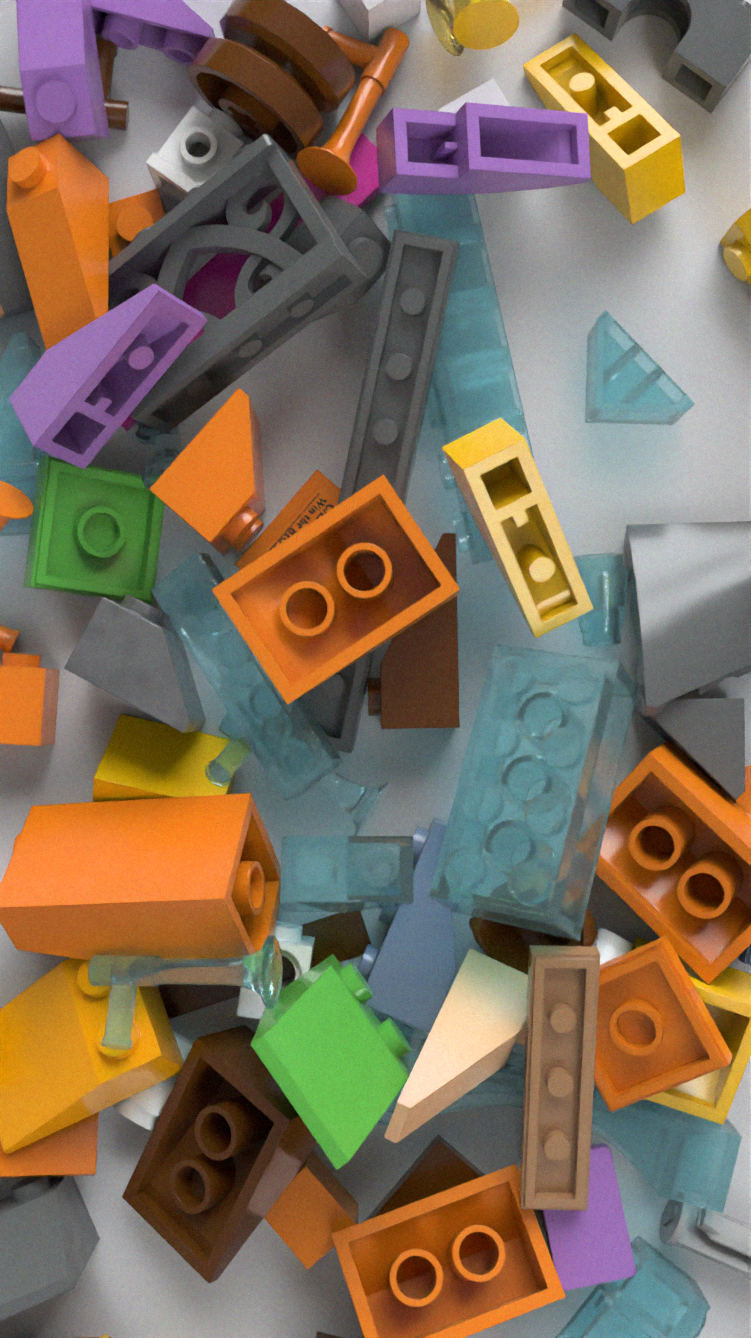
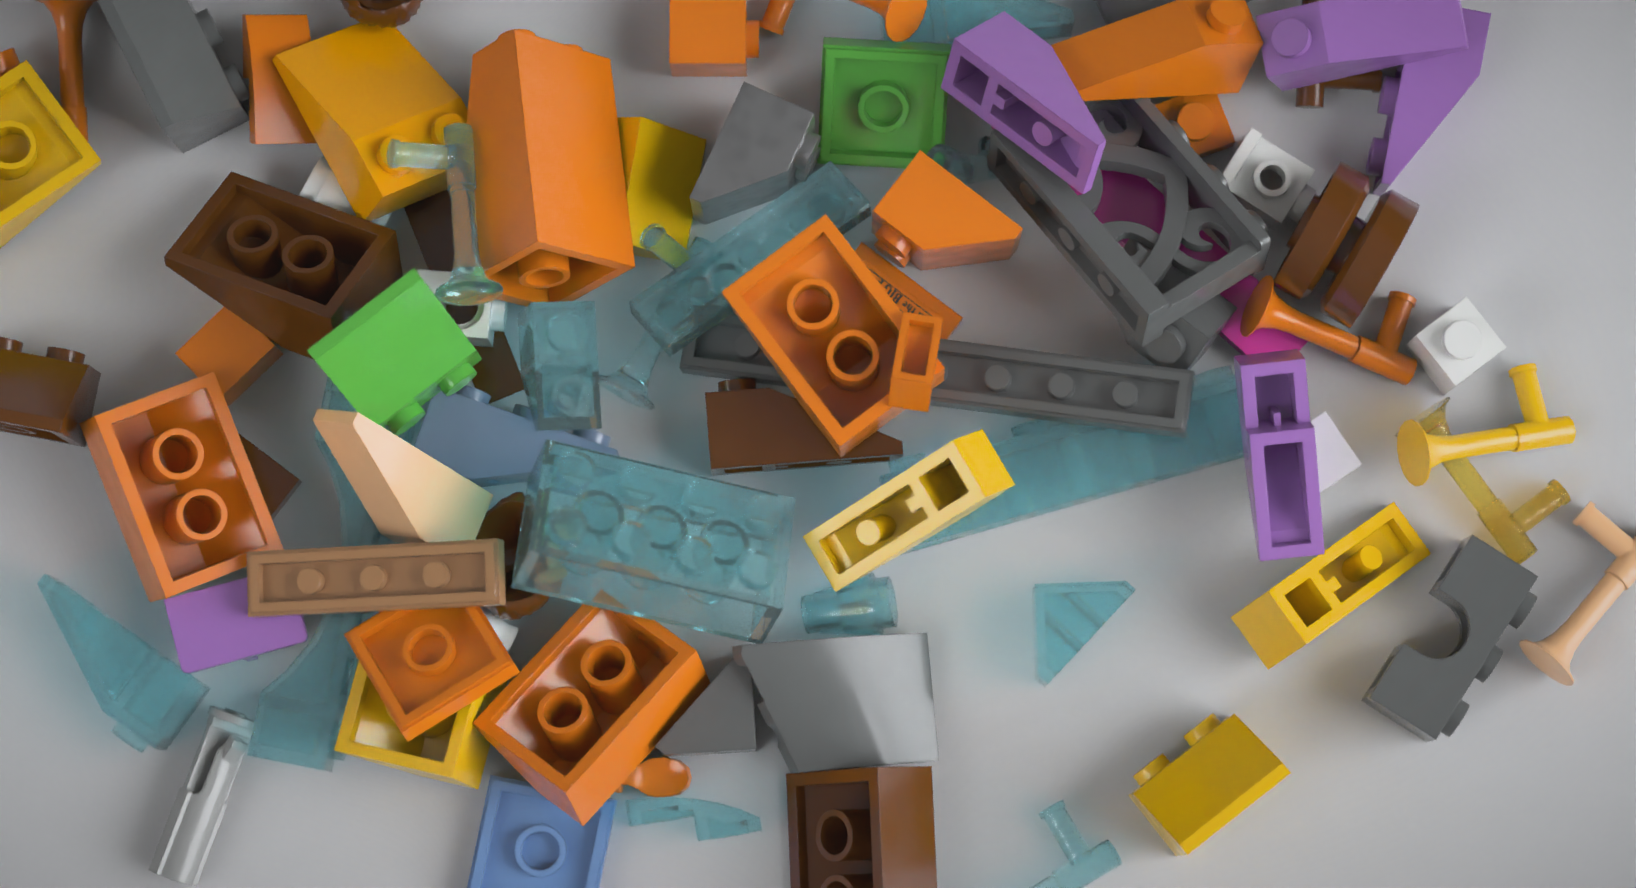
camera: 85 degrees right, 5 degrees down
(376, 502) = (915, 362): none -> orange piece

